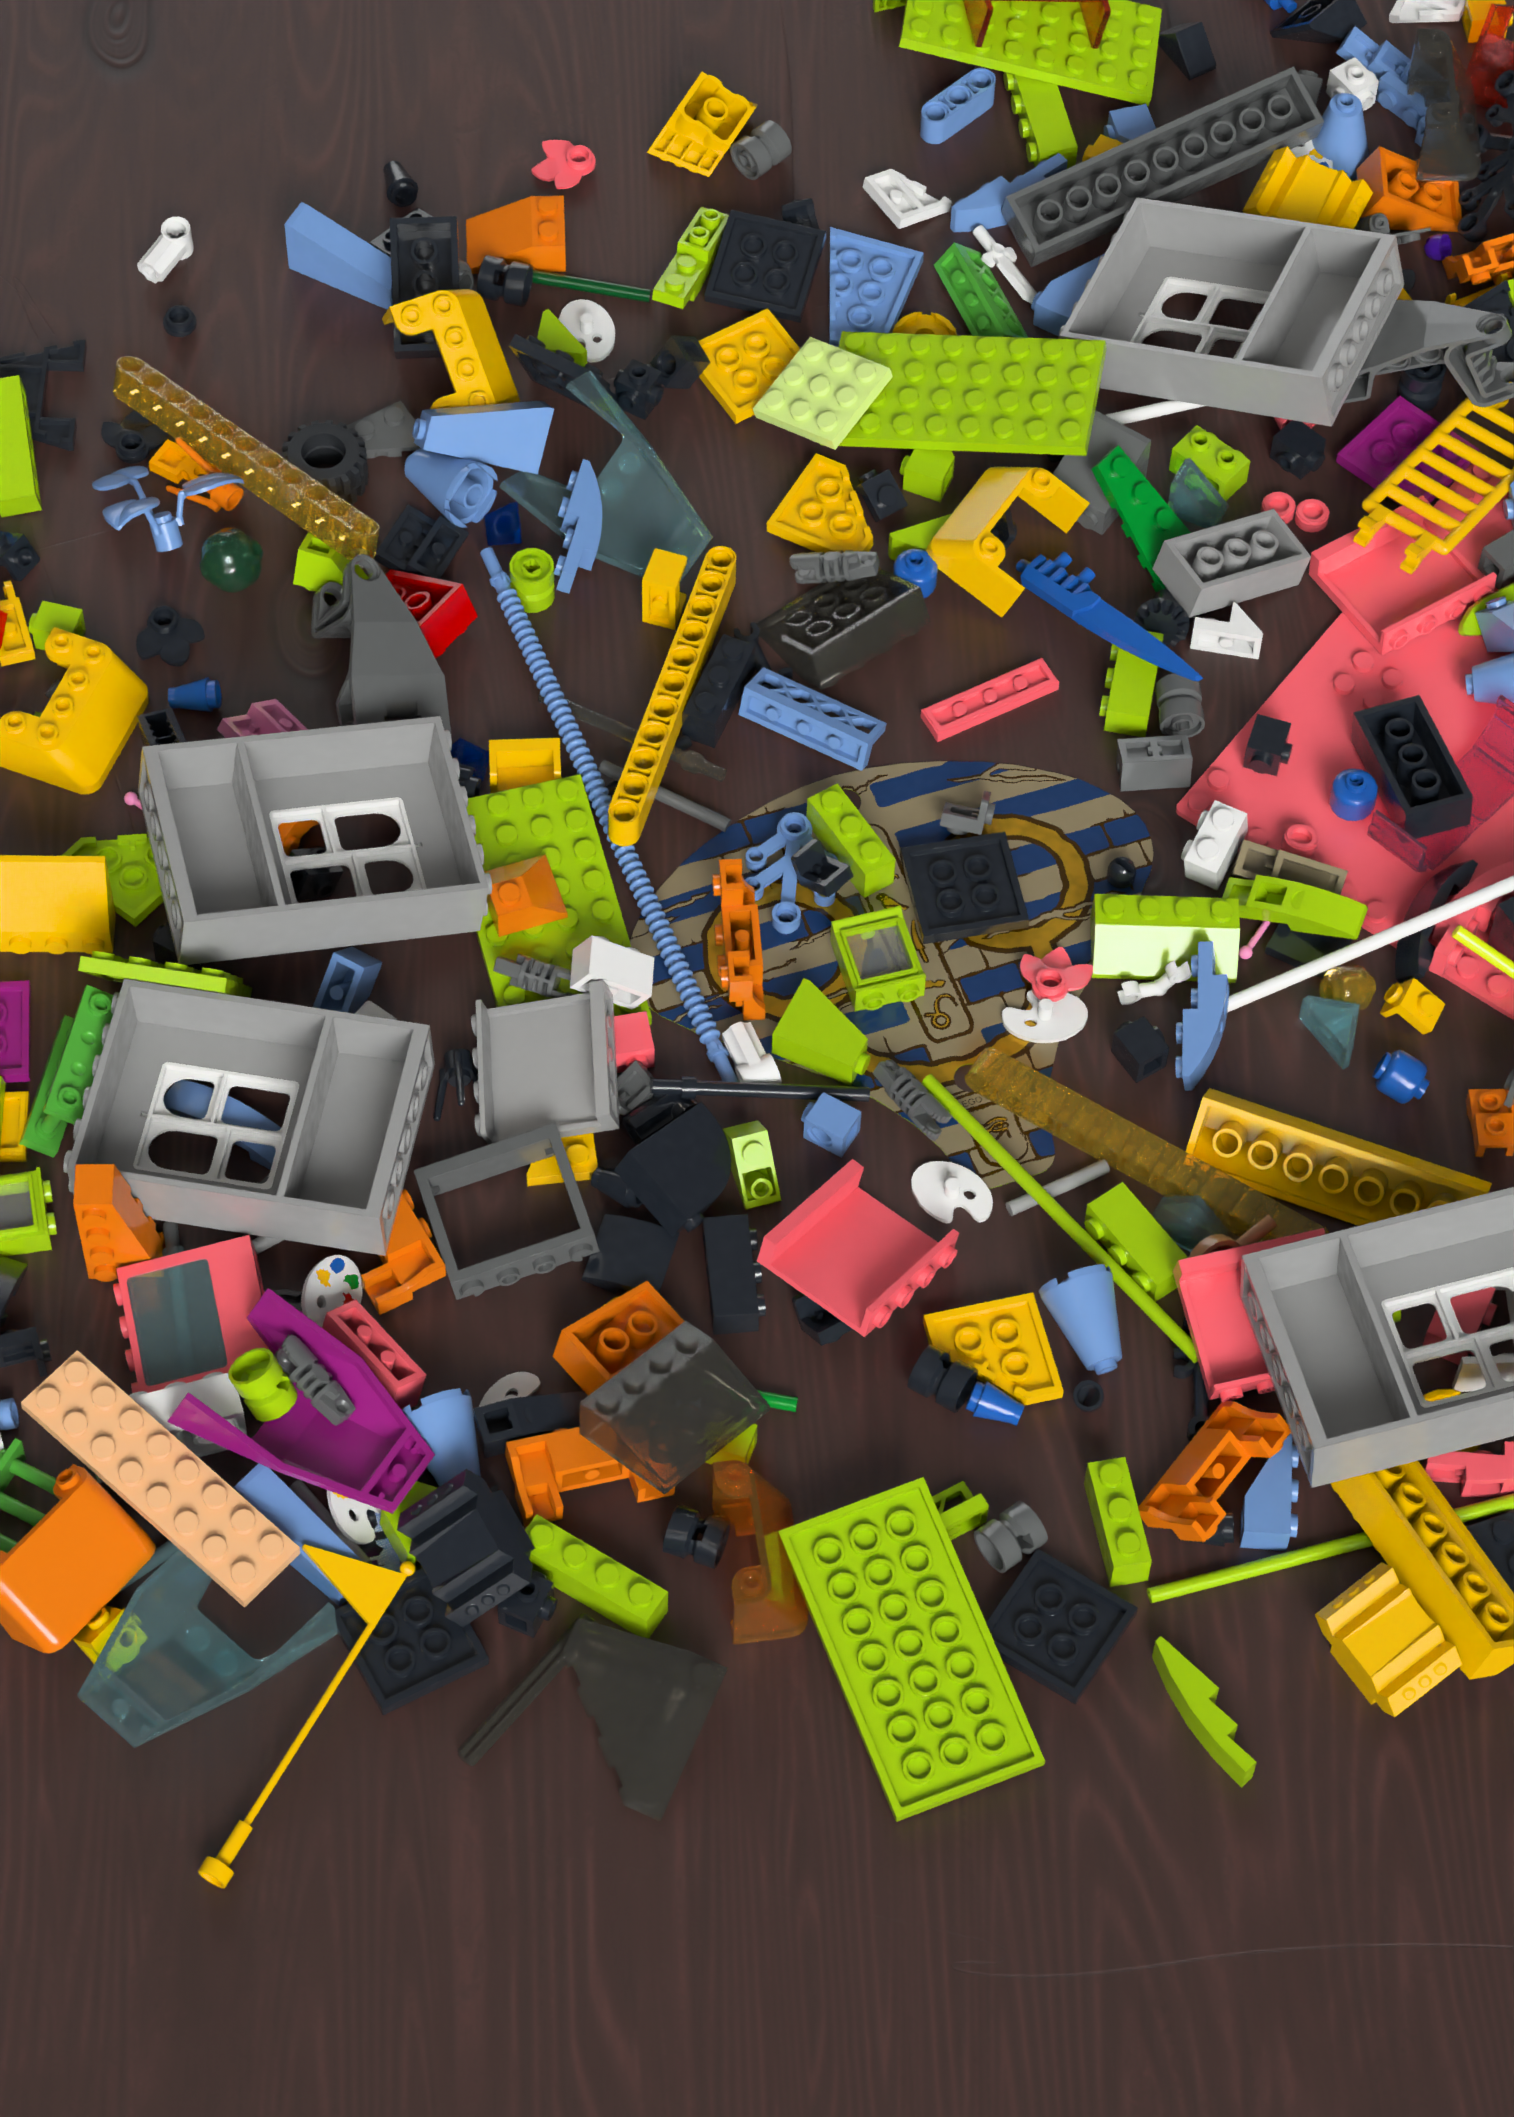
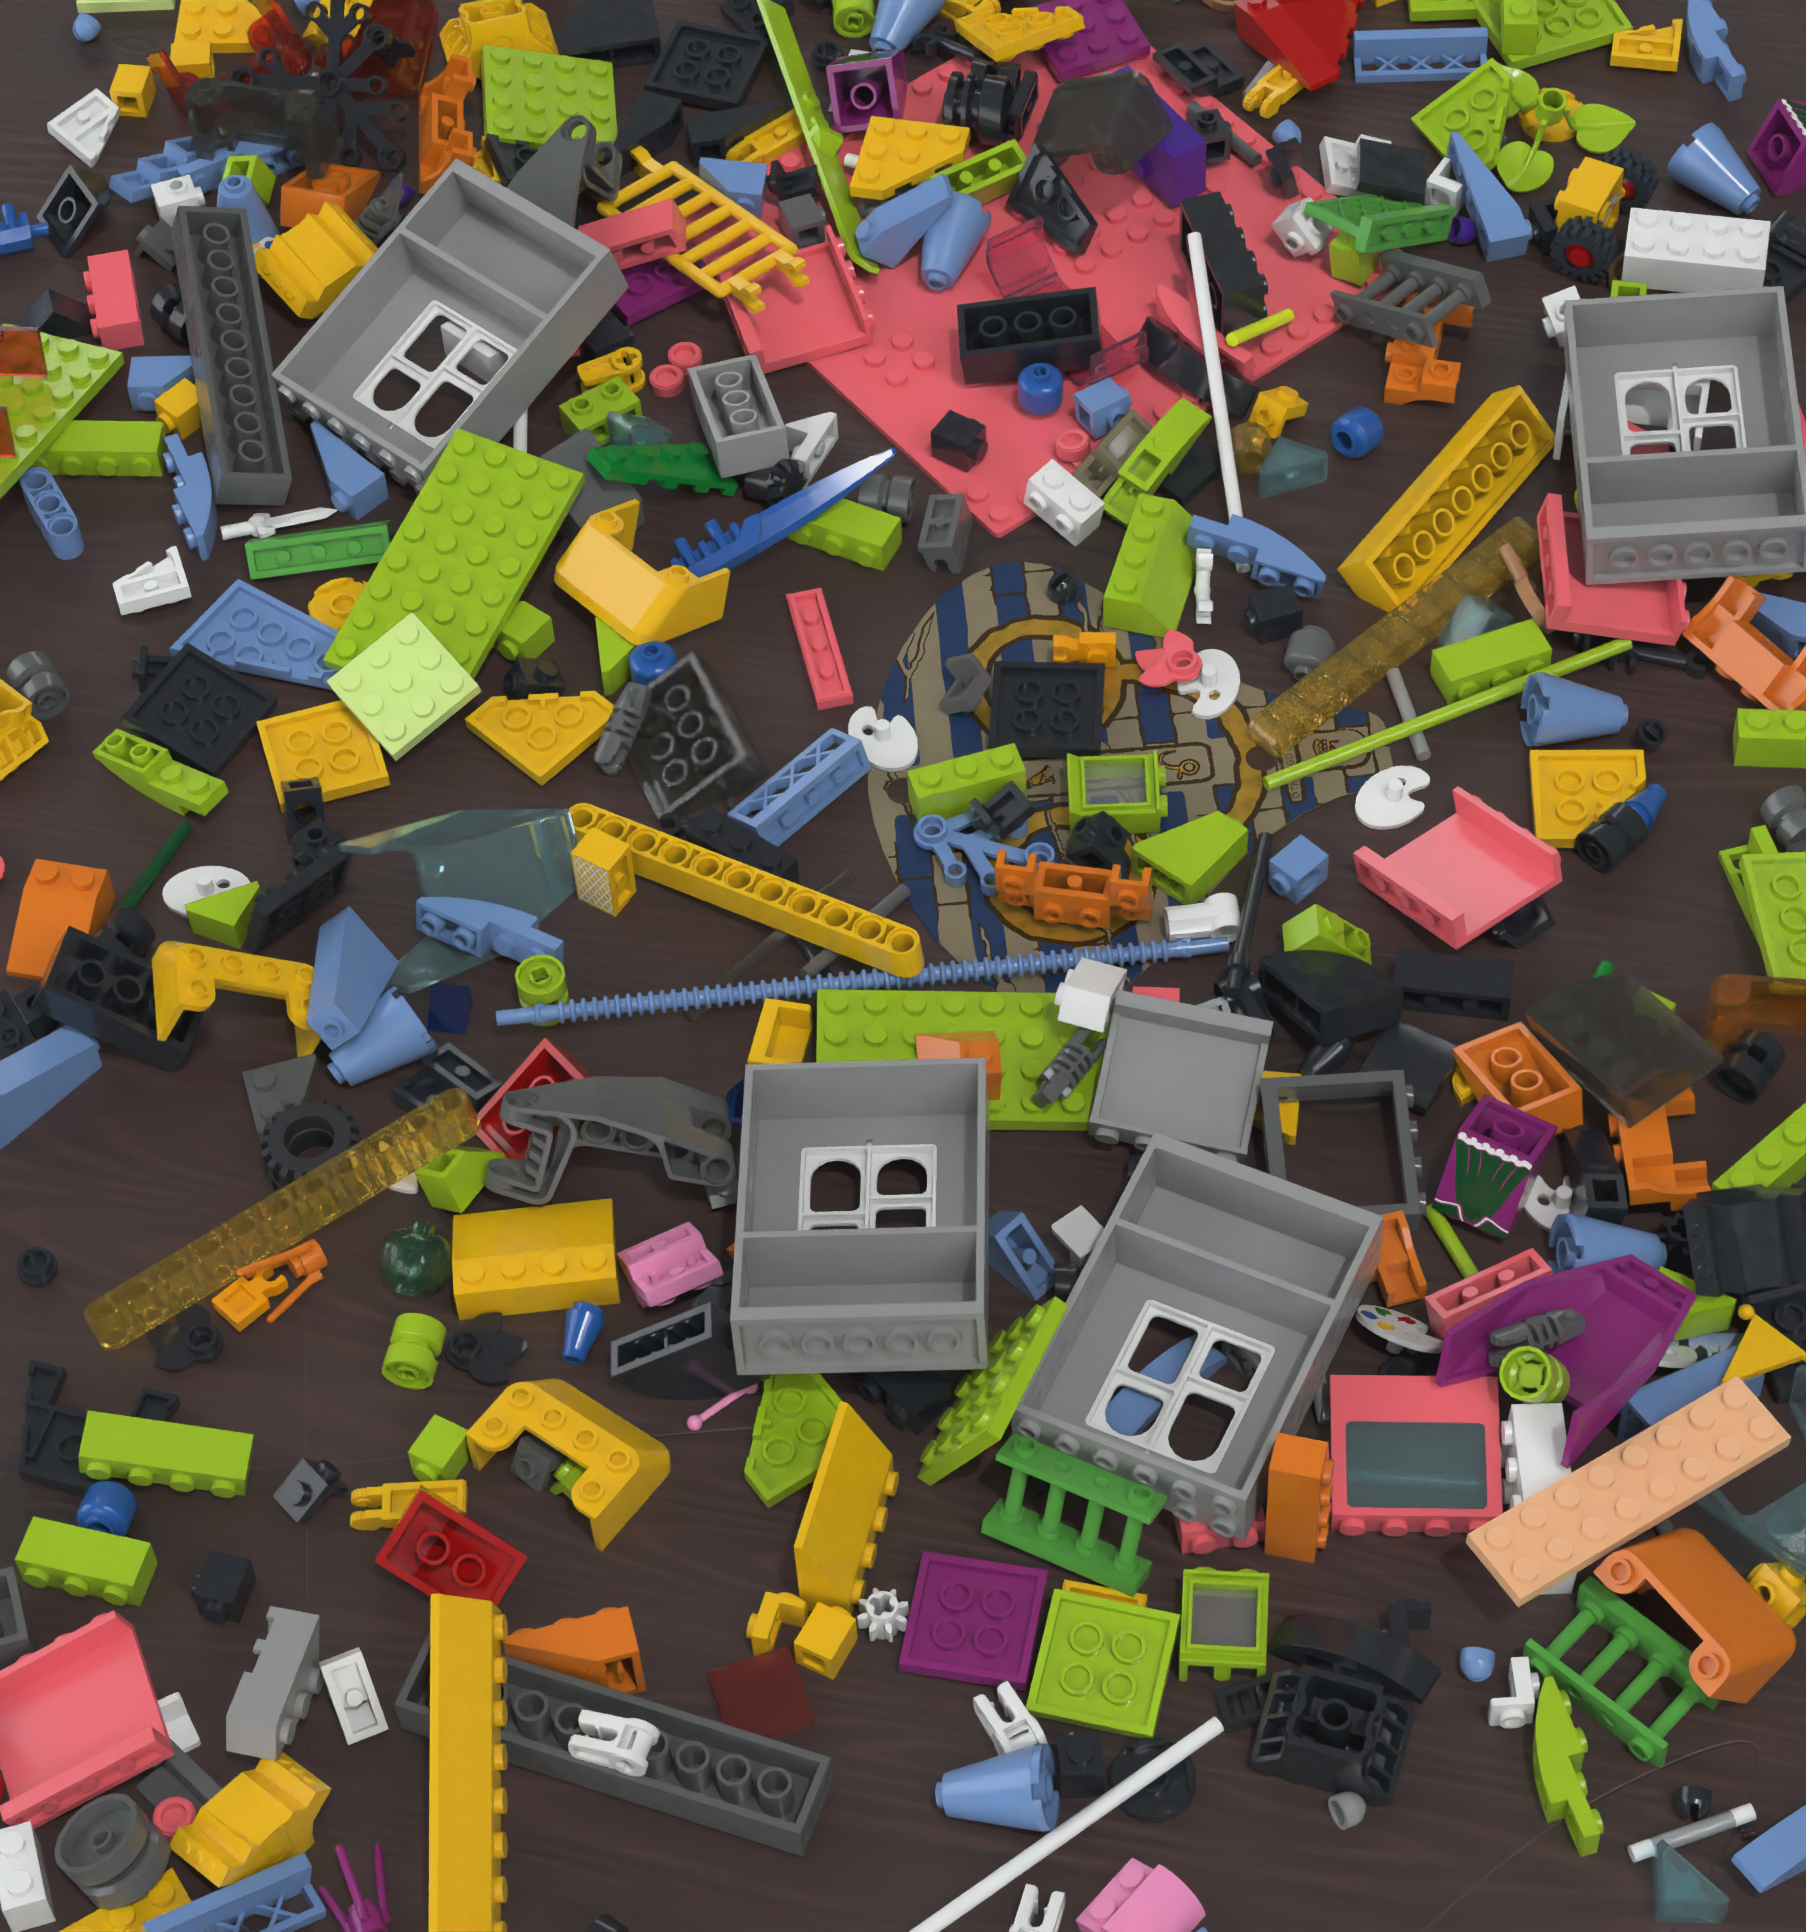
camera: 70 degrees left, 5 degrees down
(147, 584) = (413, 1350): none -> lime wheel
(162, 524) = (342, 1321): medium blue plant -> none
(265, 643) = (535, 1259): none -> yellow slope
(442, 1327) = (1451, 1242): none -> lime bar
(512, 1328) = (1493, 1166): none -> slope
(797, 950) = (1097, 842): none -> black brick
(890, 774) = (891, 745): none -> white piece
(912, 1097) = (1283, 799): dark grey hinge -> none
(1044, 910) = (1089, 648): none -> light orange plate
(1099, 1083) = (1308, 650): none -> dark grey head
(1219, 76) = (113, 301): none -> coral brick
(1267, 462) = (612, 365): none -> yellow piece
(1350, 850) = (1101, 406): none -> medium blue brick
(1395, 128) = (255, 170): none -> lime brick
(1414, 422) = (641, 233): none -> coral brick

